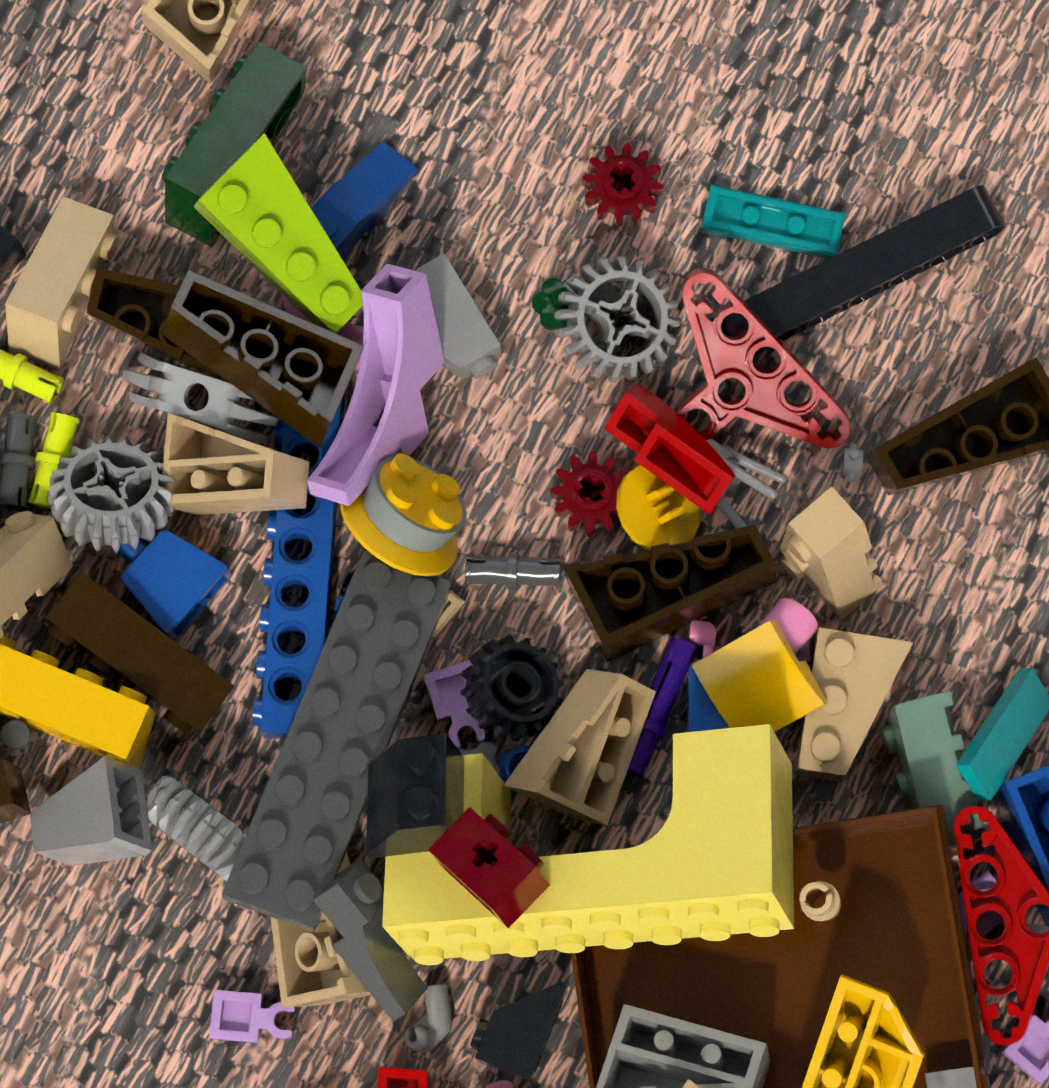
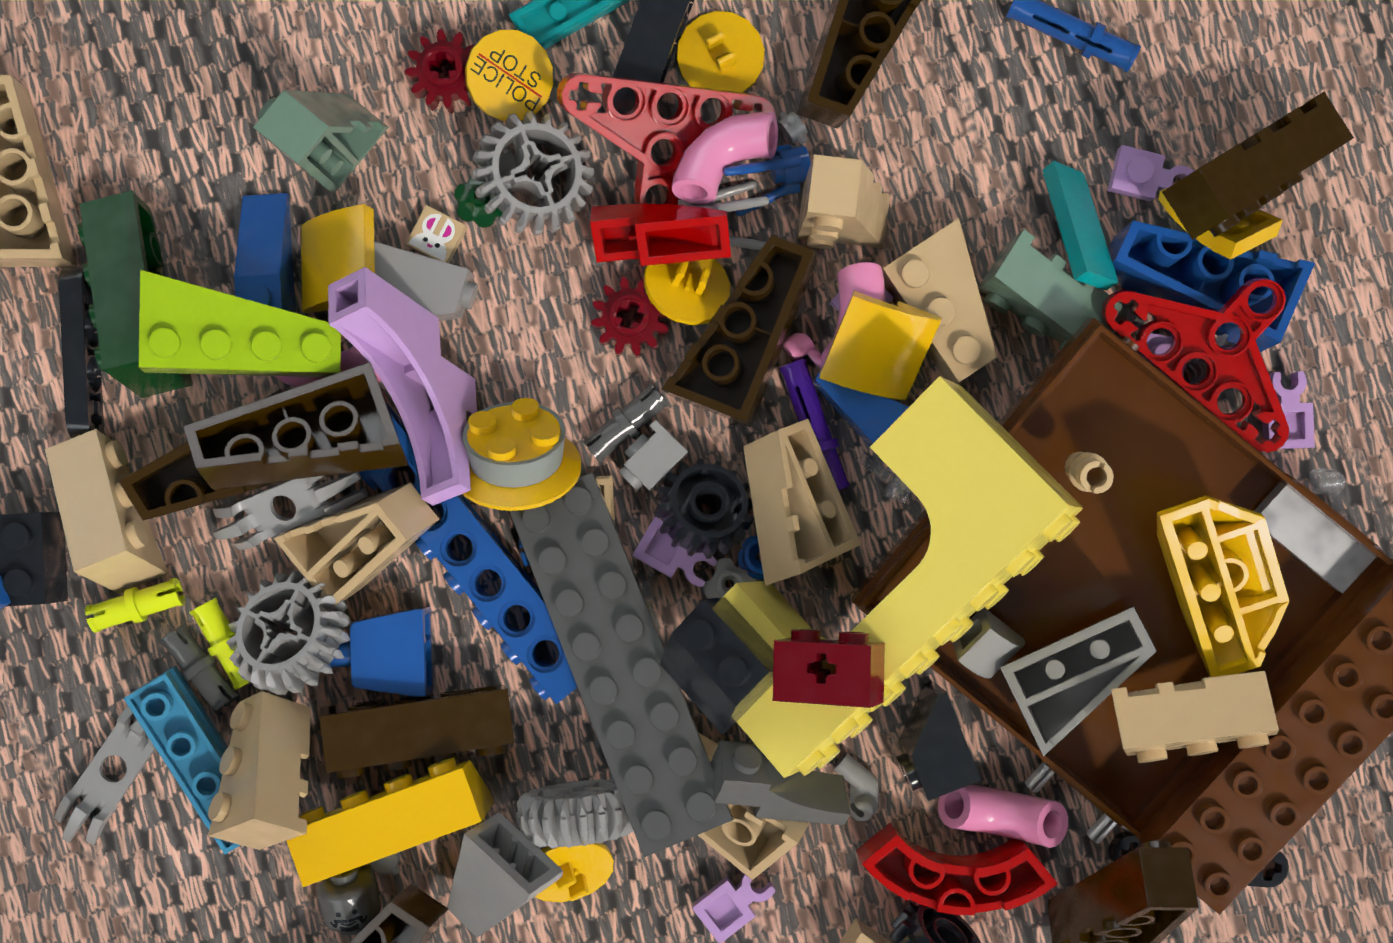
camera: 50 degrees left, 10 degrees up
(154, 148) = (80, 369): none -> black beam
(155, 880) = (583, 871): none -> yellow piece
(412, 240) = (332, 249): none -> yellow slope
(486, 149) = (320, 132): none -> sand green wedge
(501, 300) = (436, 235): none -> tile
(508, 614) = (652, 458): none -> light grey brick
(633, 983) = (987, 644): none -> light grey brick
(668, 230) = (509, 74): none -> yellow piece
(777, 427) = (720, 147): none -> bright pink cylinder
(816, 482) = (786, 167): none -> blue plant
(849, 357) = (720, 52): none -> yellow piece

